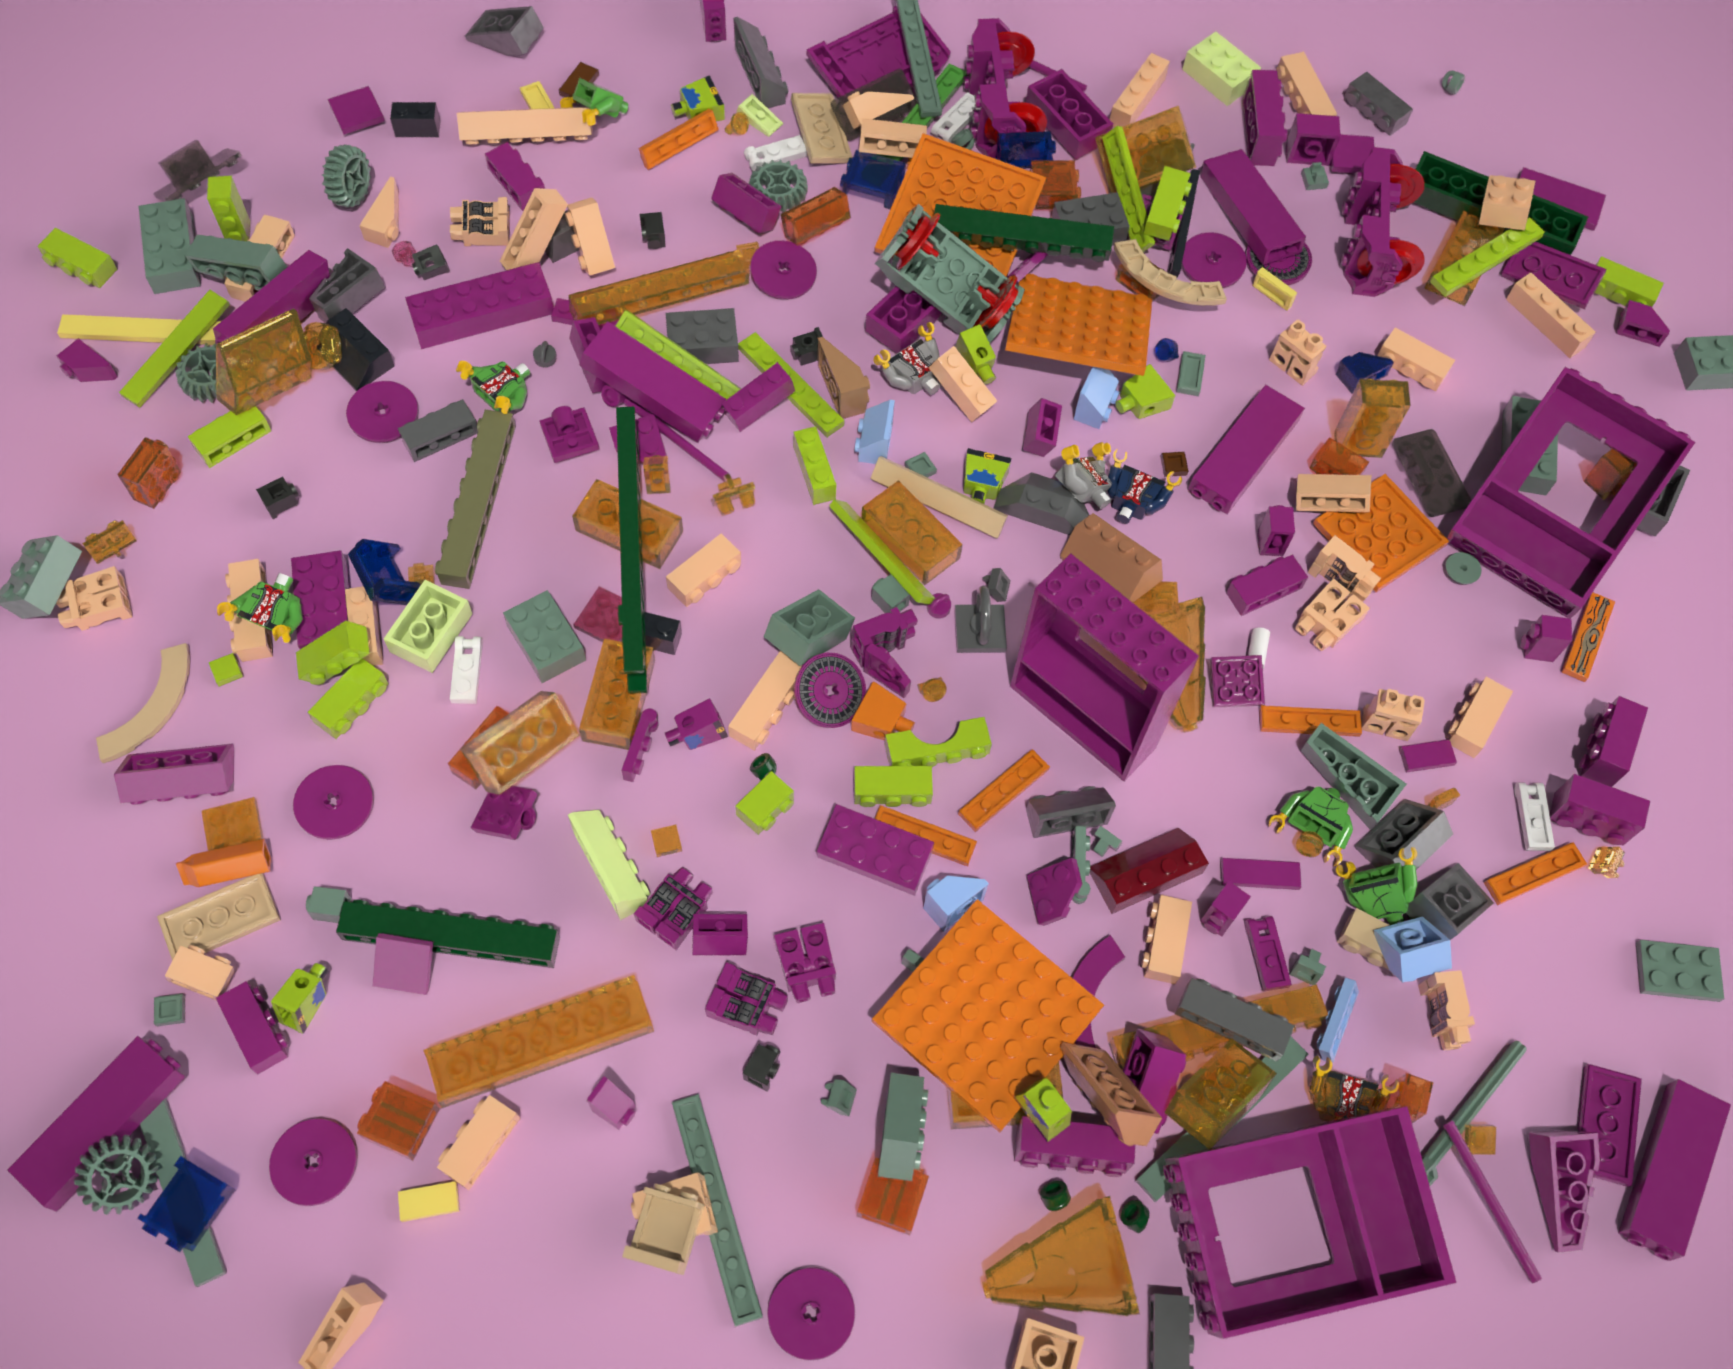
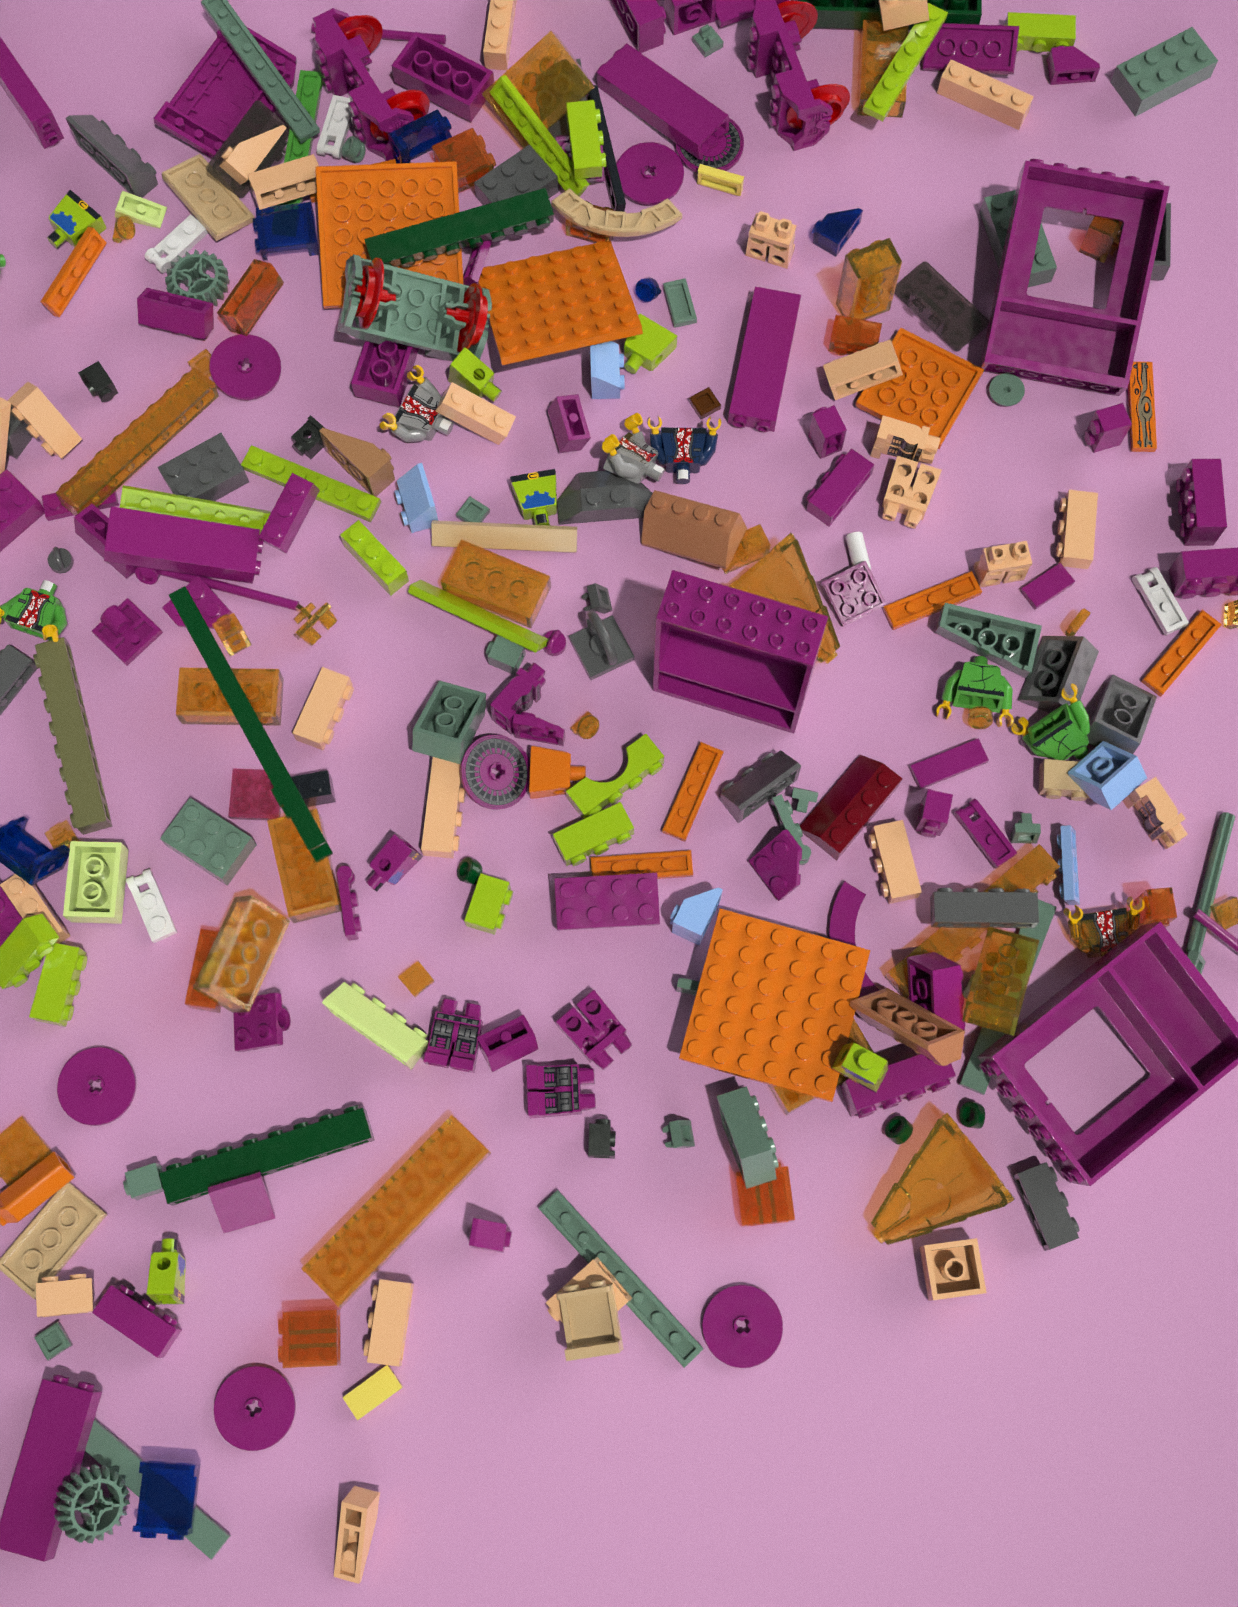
camera: 20 degrees left, 10 degrees up
(1416, 359) = (880, 196): light nougat brick -> none

